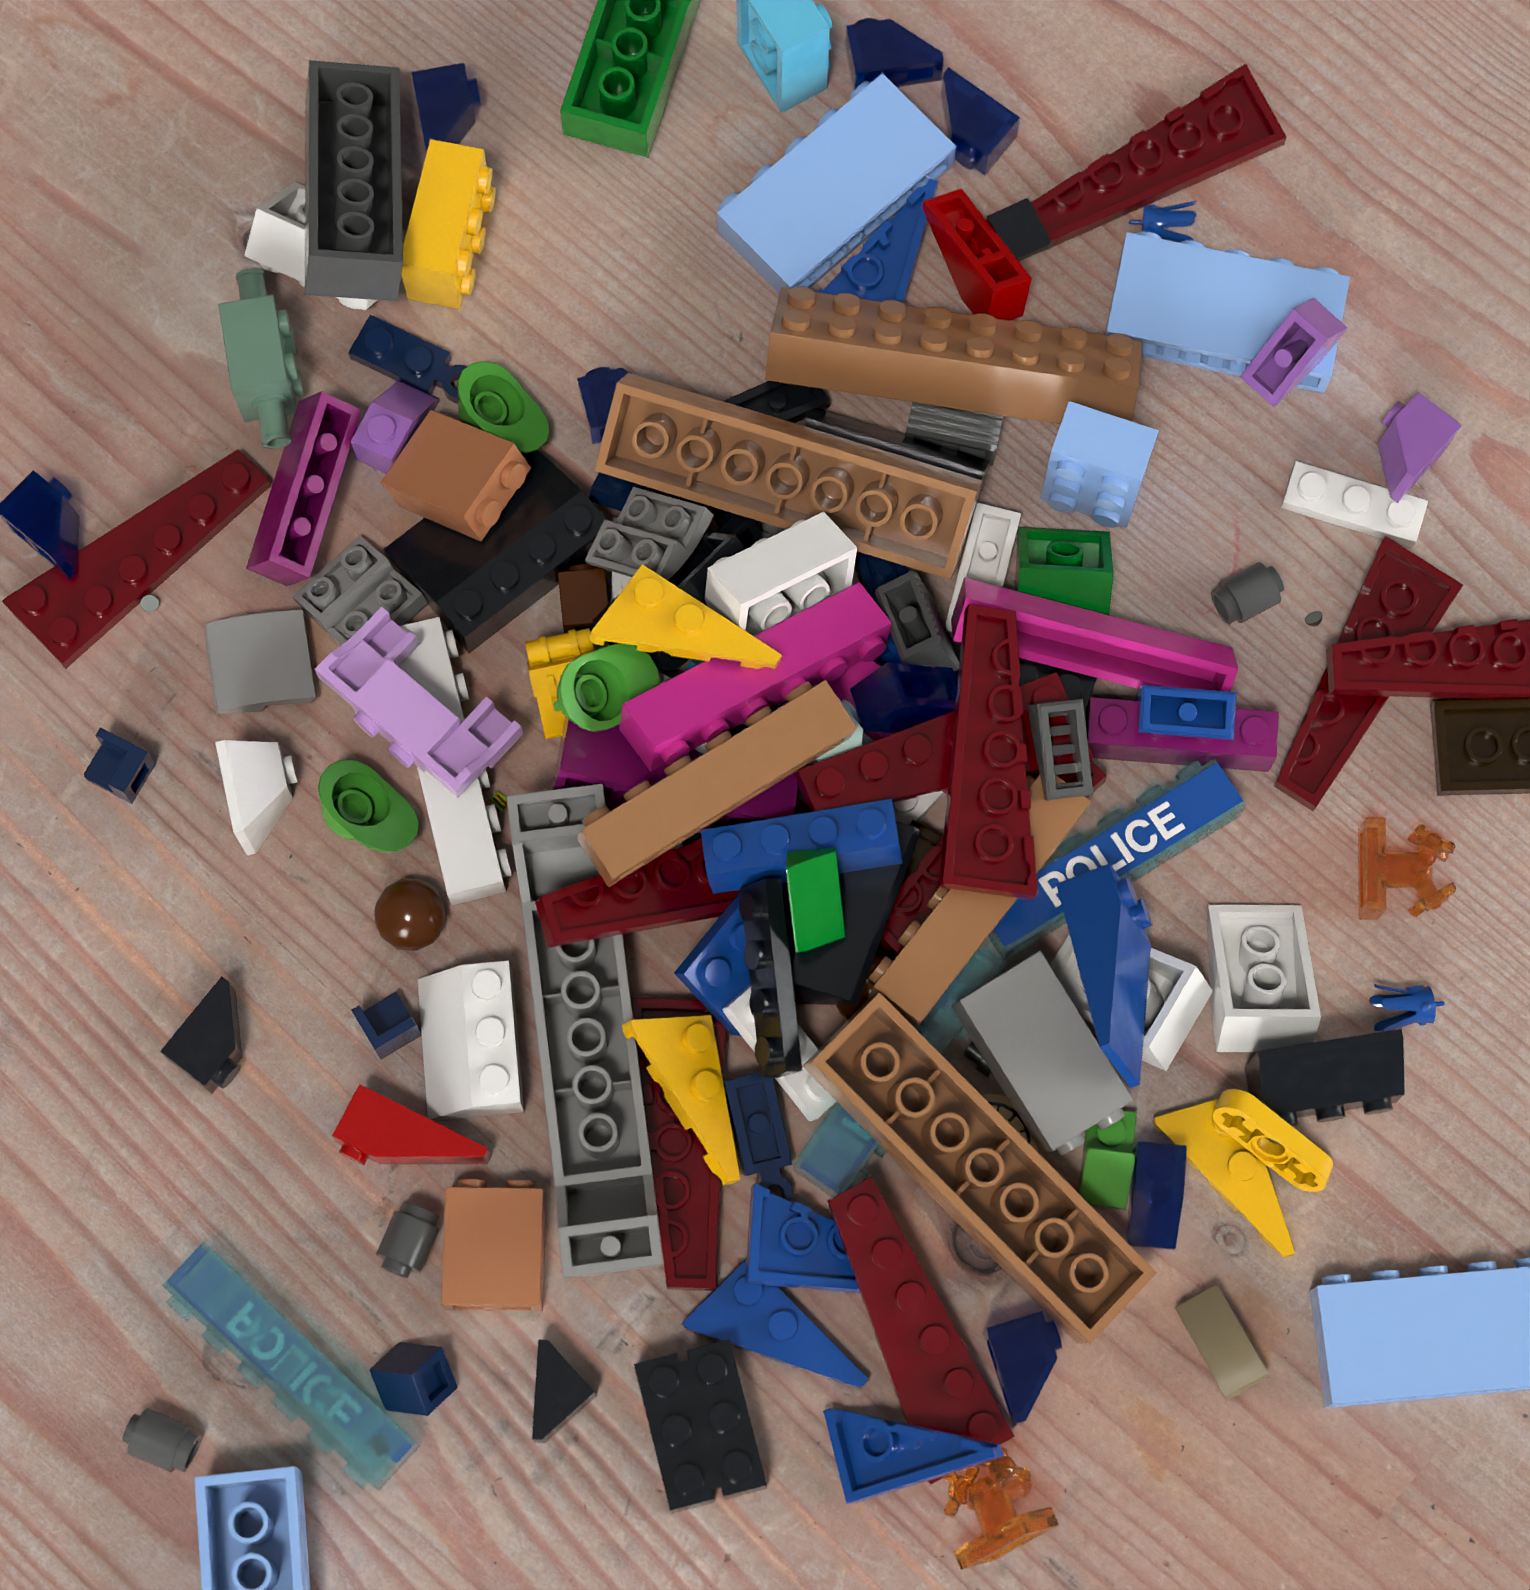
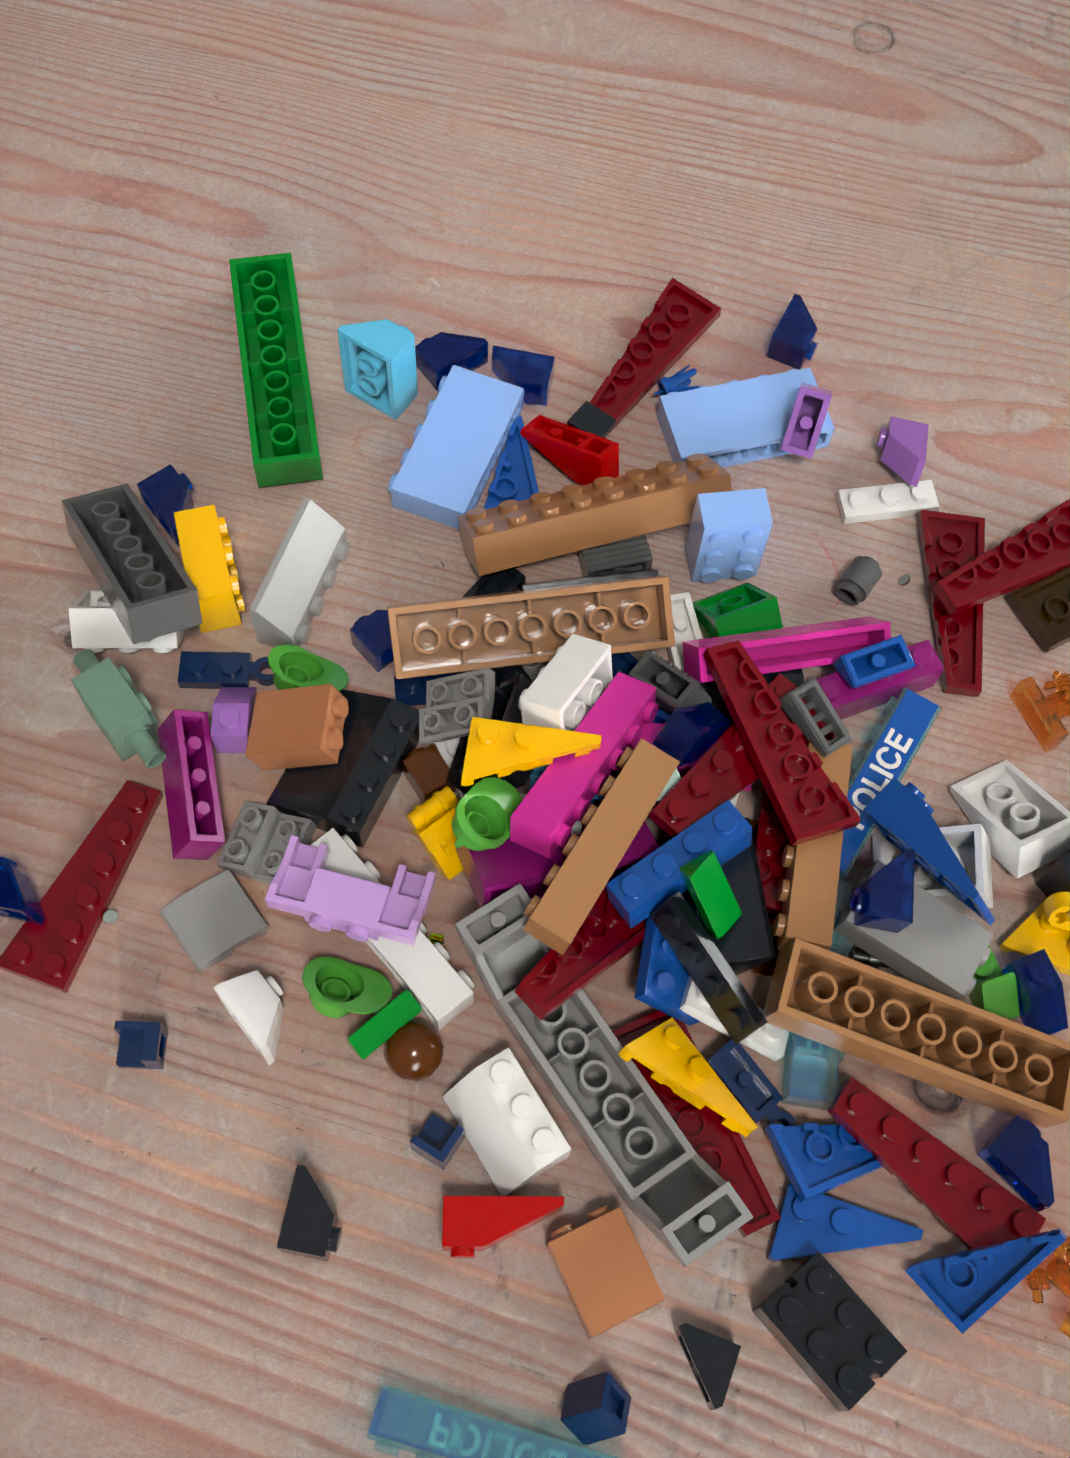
camera: 30 degrees left, 10 degrees down
(388, 869) = (384, 1024): none -> green slope
(408, 1240) = (537, 1299): dark grey brick -> none
(550, 283) = (299, 577): none -> slope
(1016, 994) = (887, 897): none -> clear blue slope
(1362, 218) = (794, 336): none -> clear blue slope

